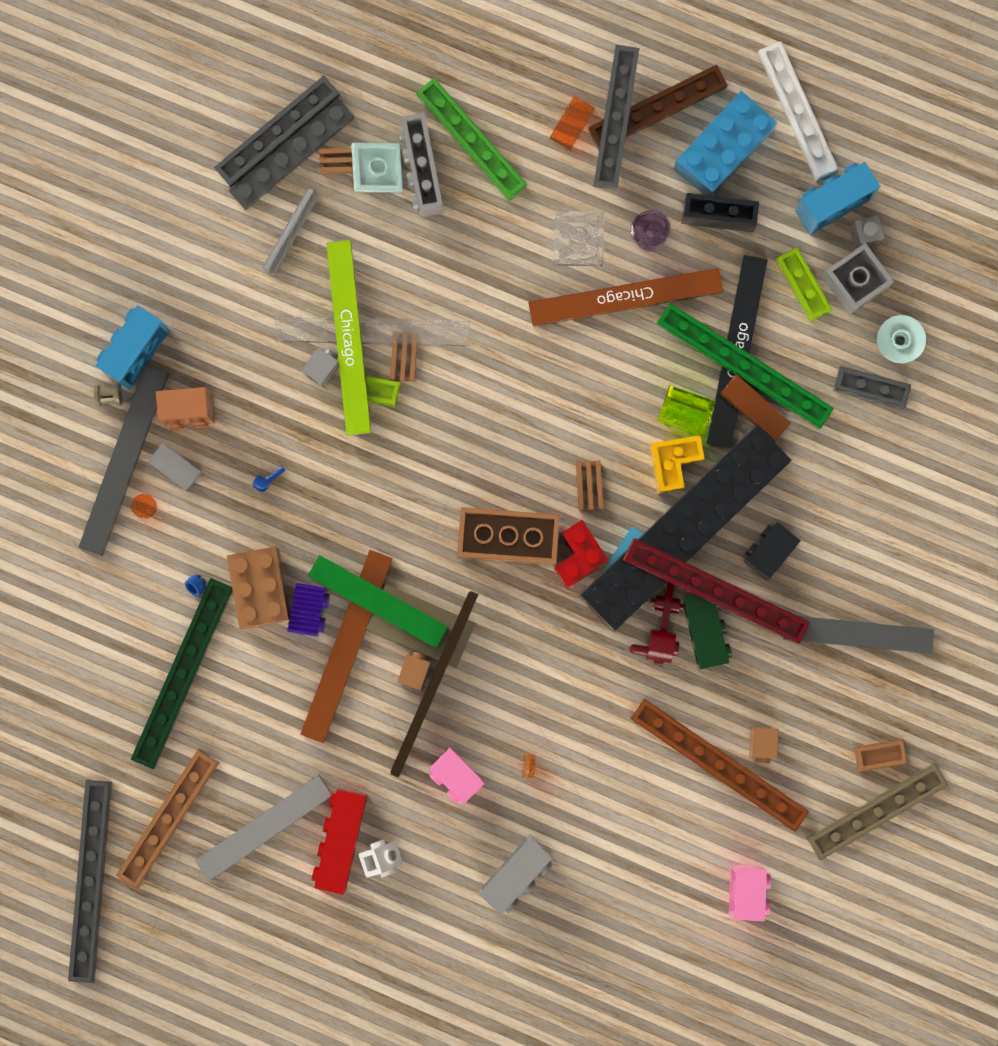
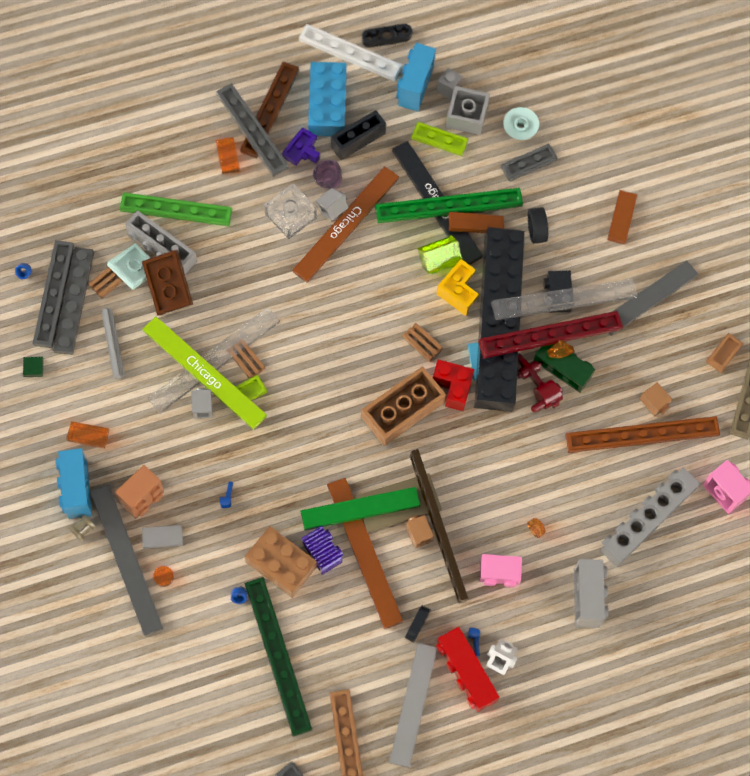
camera: 50 degrees left, 15 degrees down
(190, 305) = (87, 434): none -> clear orange tile
(196, 191) = (33, 366): none -> dark green tile
(268, 82) = (25, 273): none -> blue hinge
(334, 757) = (417, 623): none -> black beam
(378, 813) = (474, 633): none -> blue hand
(391, 214) = (167, 282): none -> reddish brown tile
(628, 265) = (332, 204): none -> light grey brick
(652, 177) = (301, 148): none -> dark purple hinge
(710, 615) = (560, 350): none -> clear orange tile
(710, 855) = (618, 553): none -> light grey brick
(764, 566) = (563, 299): none -> clear tile
(813, 464) = (537, 225): none -> black tyre
(863, 119) = (383, 41): none -> black beam
(912, 527) = (622, 217): none -> dark orange tile

